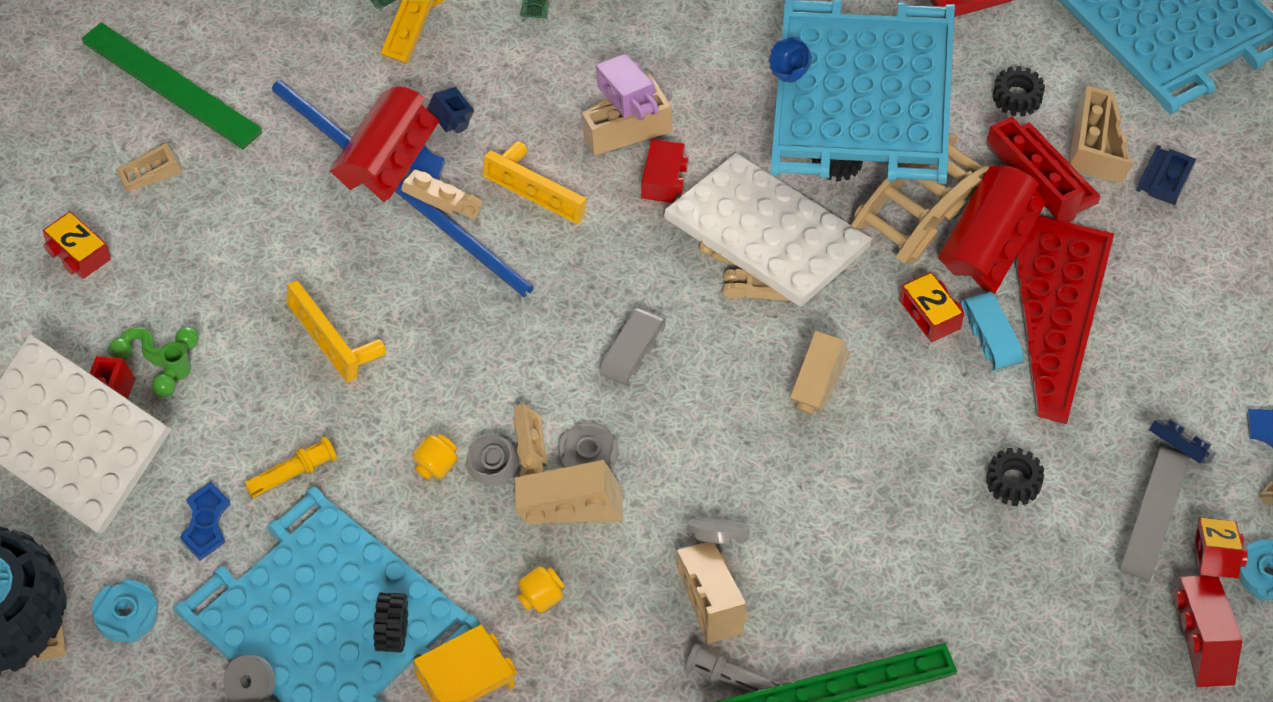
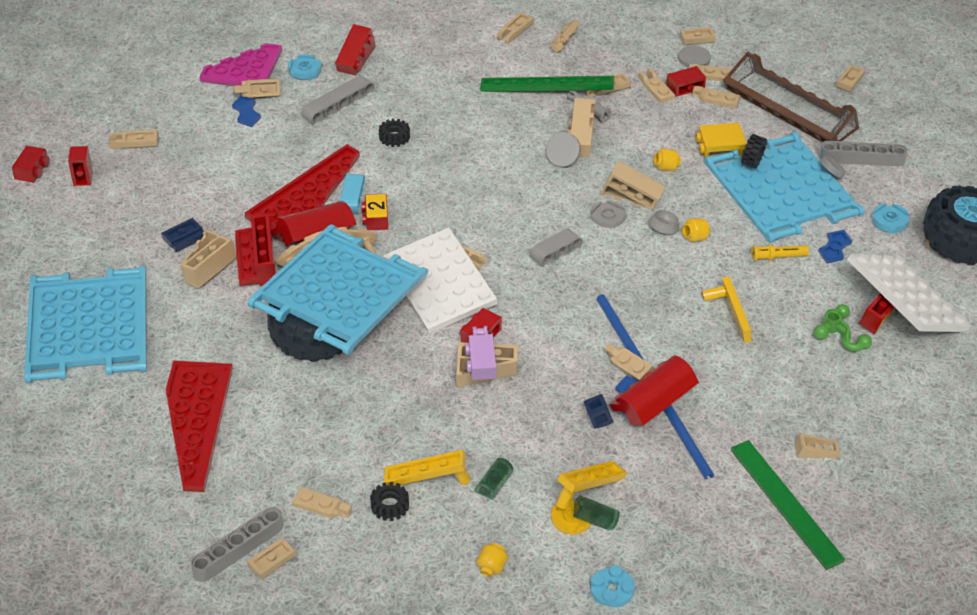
camera: 155 degrees left, 10 degrees down
(75, 245) = (879, 407): brick -> none
(530, 440) = (640, 220): tan hinge -> none
(540, 190) = (581, 361): yellow piece -> none
(790, 59) = (379, 299): blue hair -> none
(819, 373) = (460, 198): tan slope -> none
(1021, 79) = (226, 312): black tyre -> none
(1172, 433) = (299, 116): dark blue plate -> none
(1219, 548) = (324, 70): red brick -> none

